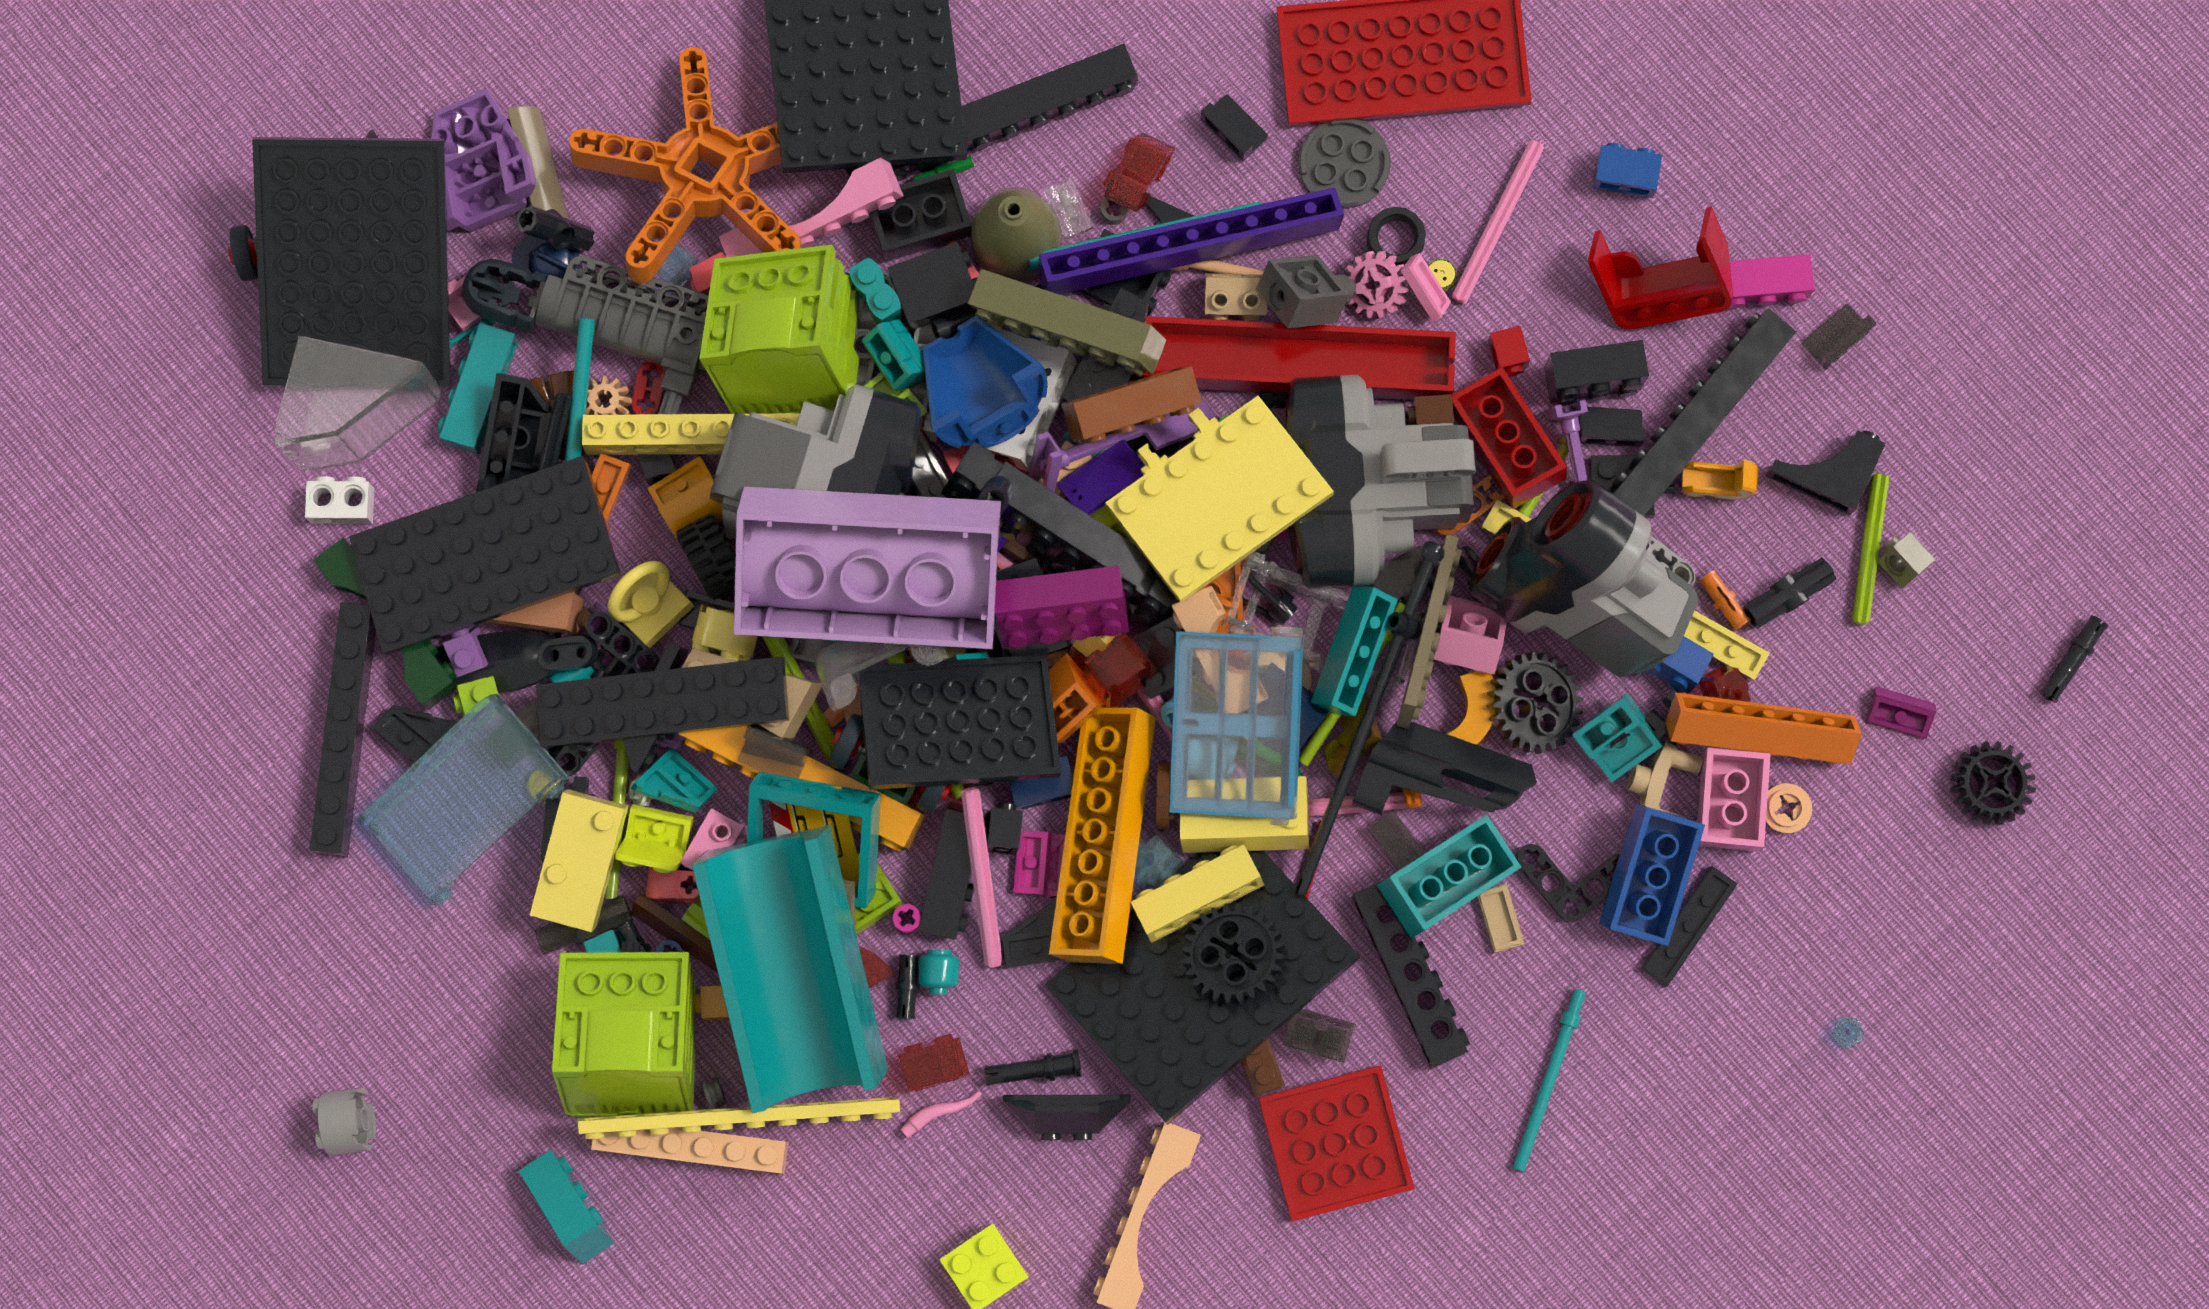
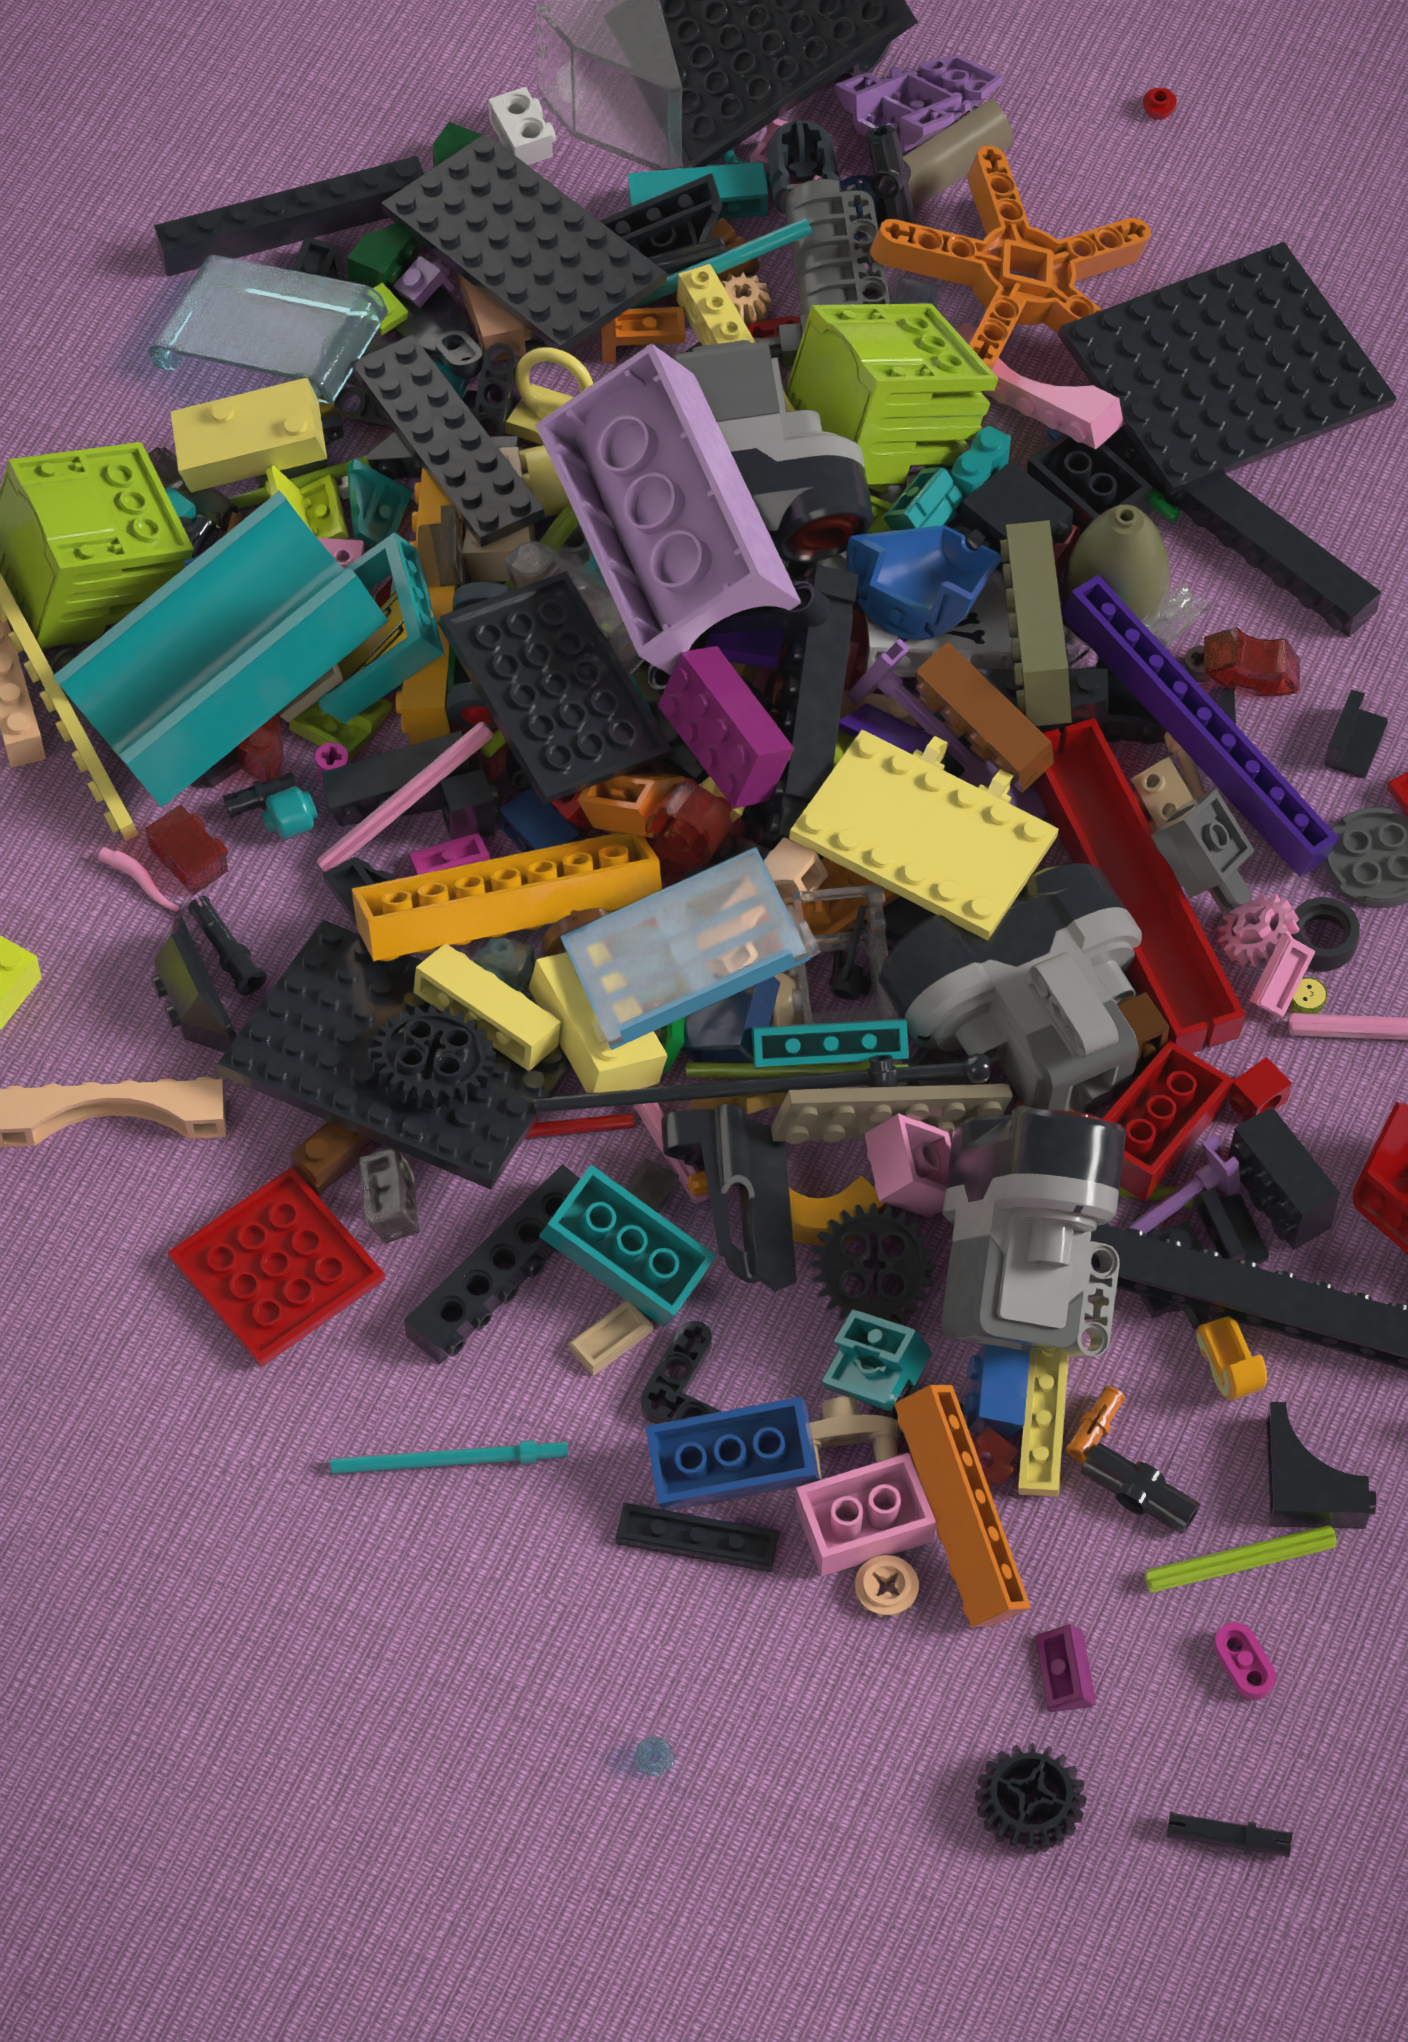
camera: 65 degrees right, 20 degrees down
(1905, 559) = (1246, 1593): olive brick -> none
(1949, 585) = (1246, 1663): none -> dark pink plate

